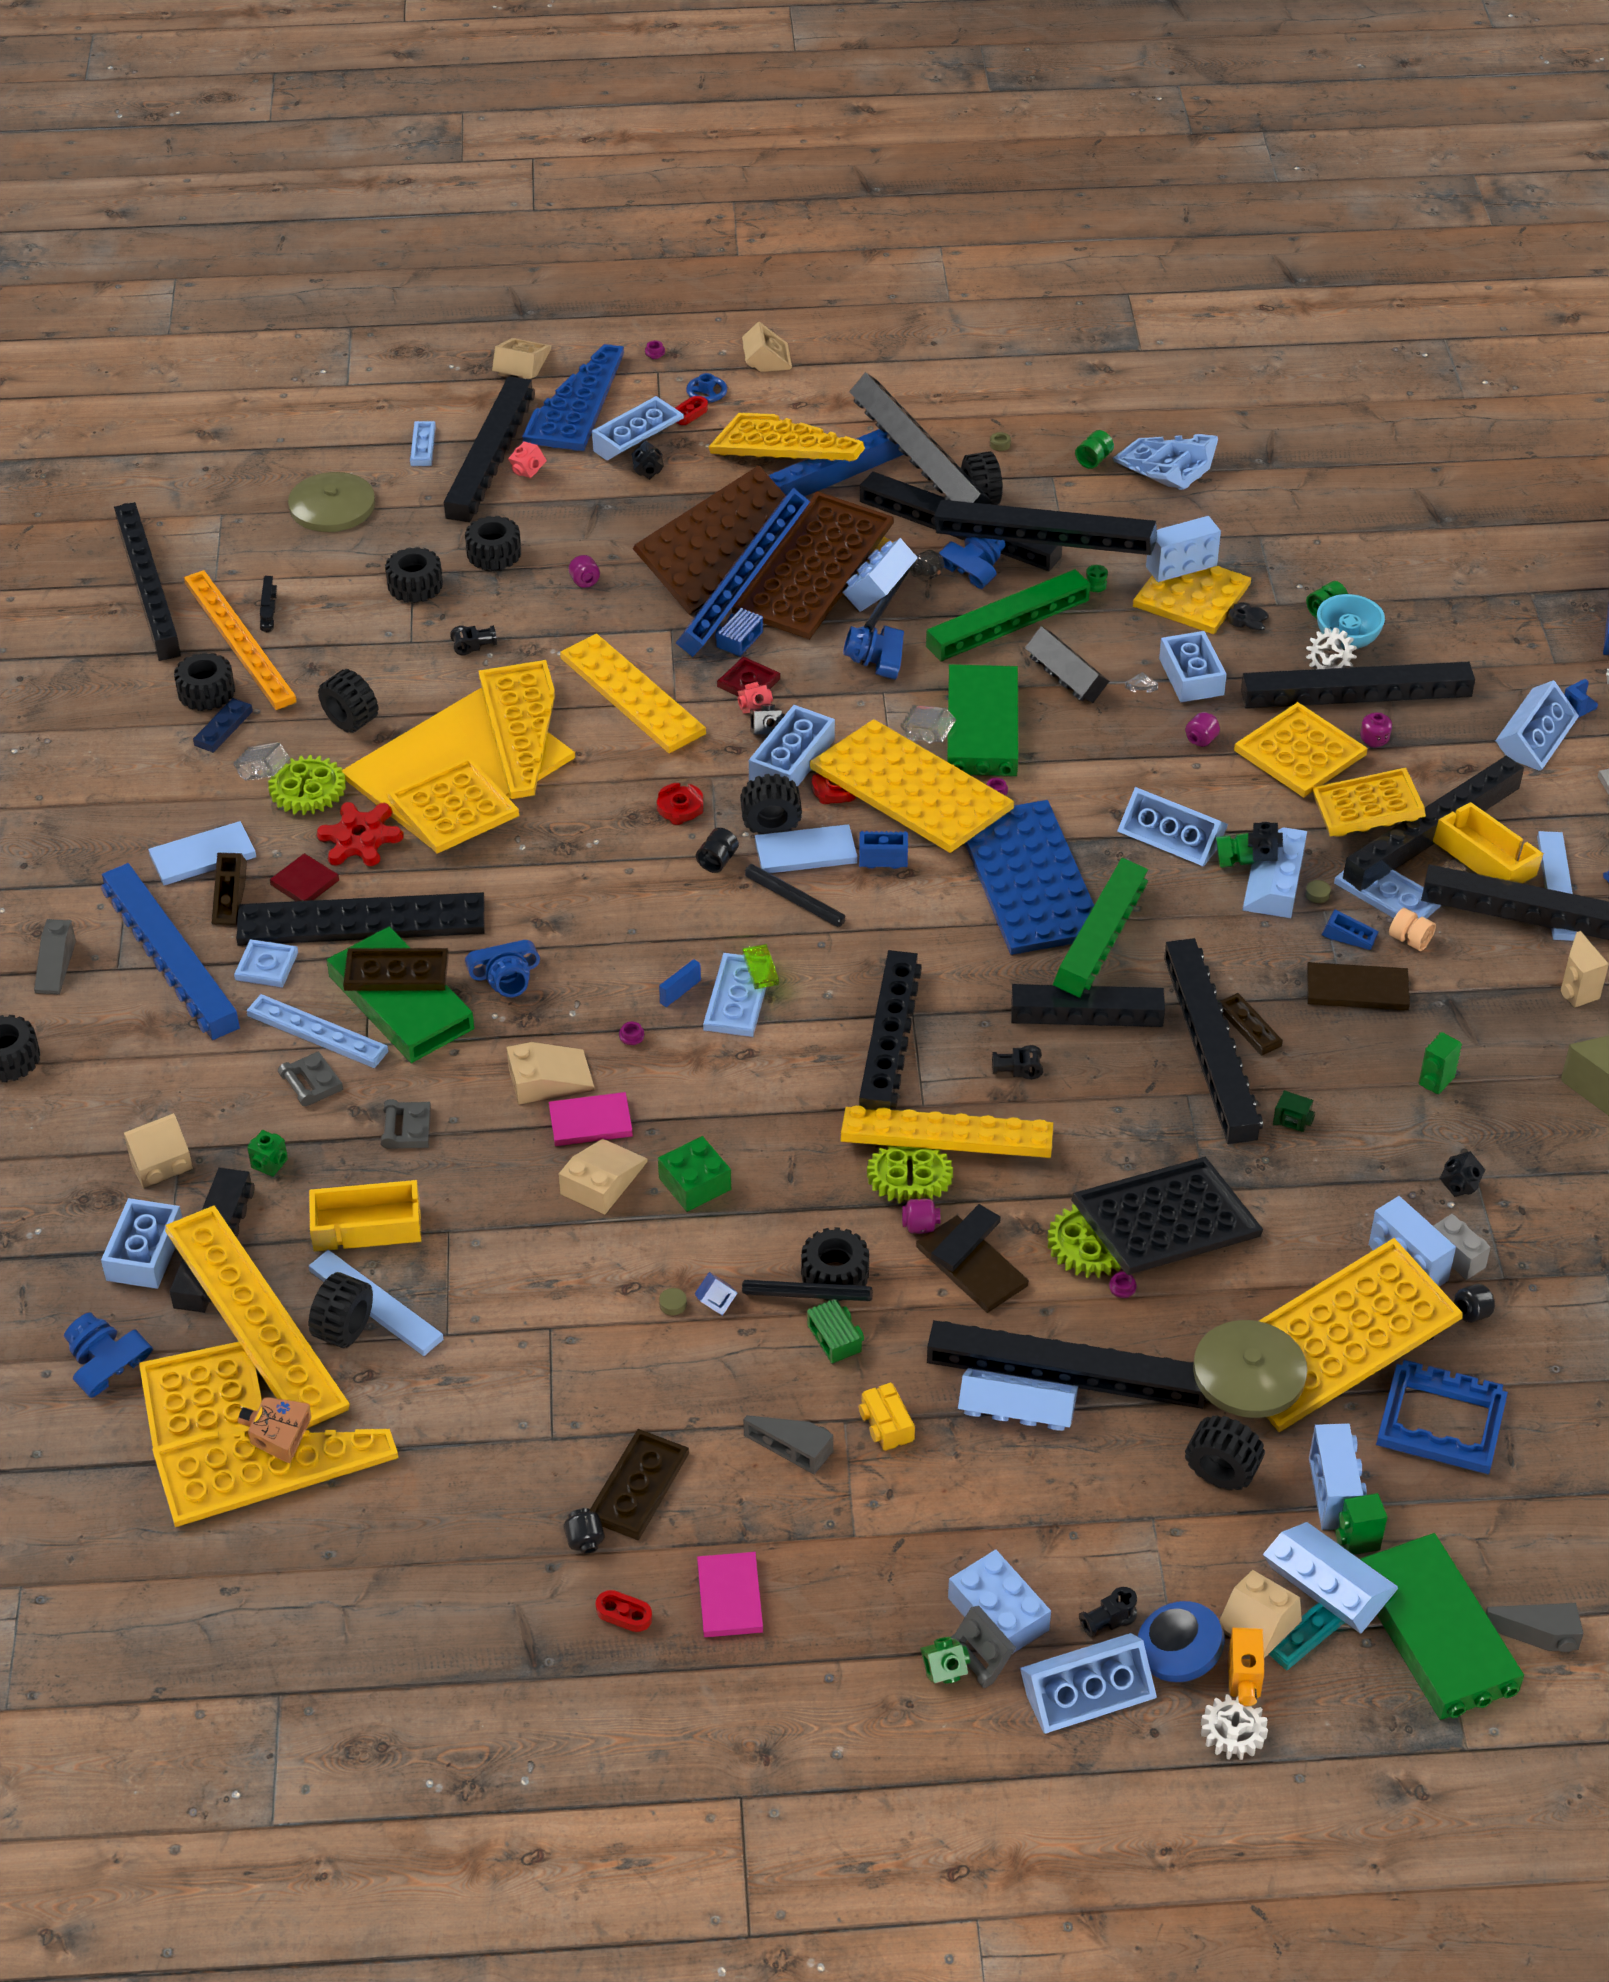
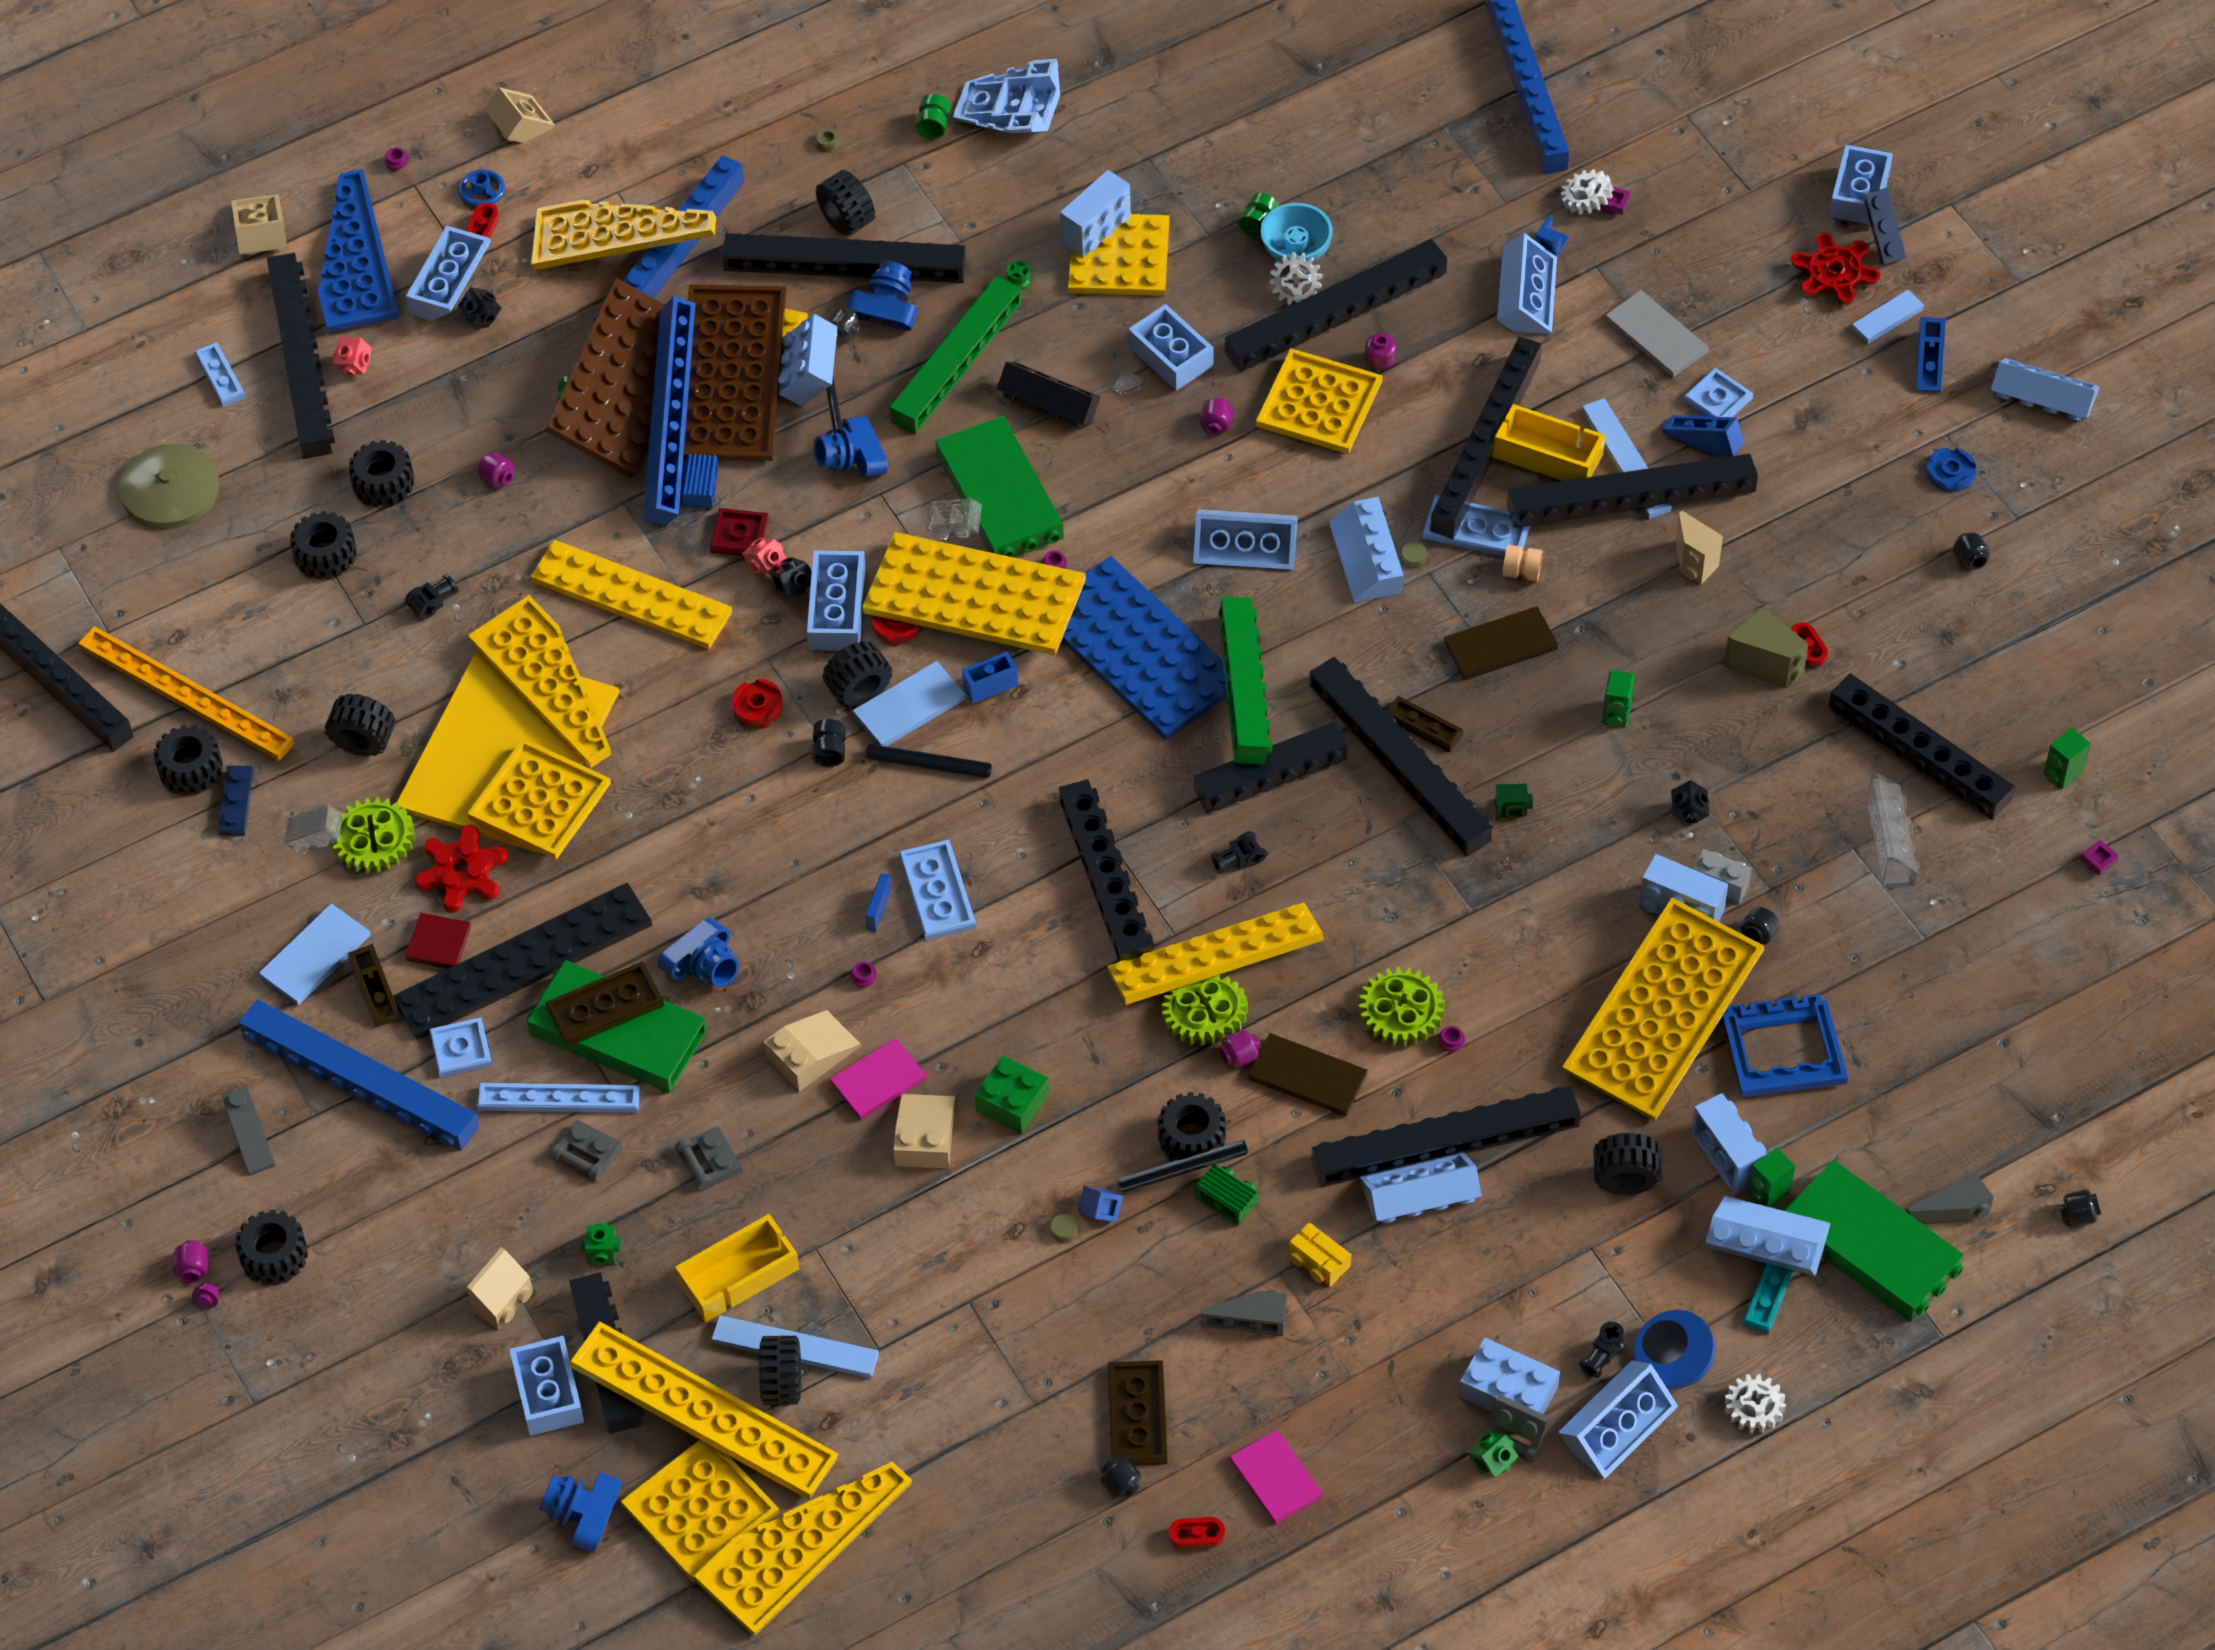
camera: 25 degrees left, 10 degrees up
(268, 605) = (189, 641): black hinge -> none
(277, 1426) = (796, 1505): nougat torso -> none
(760, 966) = (945, 853): clear neon green tile -> none
(915, 442) = (766, 189): brick -> none
(965, 1237) = (1292, 1052): black tile -> none
(1046, 527) = (953, 245): black brick -> none
(1166, 1215) = (1457, 955): black plate -> none
(1234, 850) = (1317, 543): green wheel -> none
(1244, 614) = (1188, 263): black plate -> none
(1246, 1675) = (1741, 1347): light orange torso -> none
(1250, 1368) = (1607, 1074): olive dish -> none
(1262, 1605) = (1727, 1295): tan slope -> none
(1265, 841) = (1350, 527): black brick -> none
(1342, 929) = (1449, 590): blue slope -> none
(1368, 802) = (1418, 441): yellow plate -> none

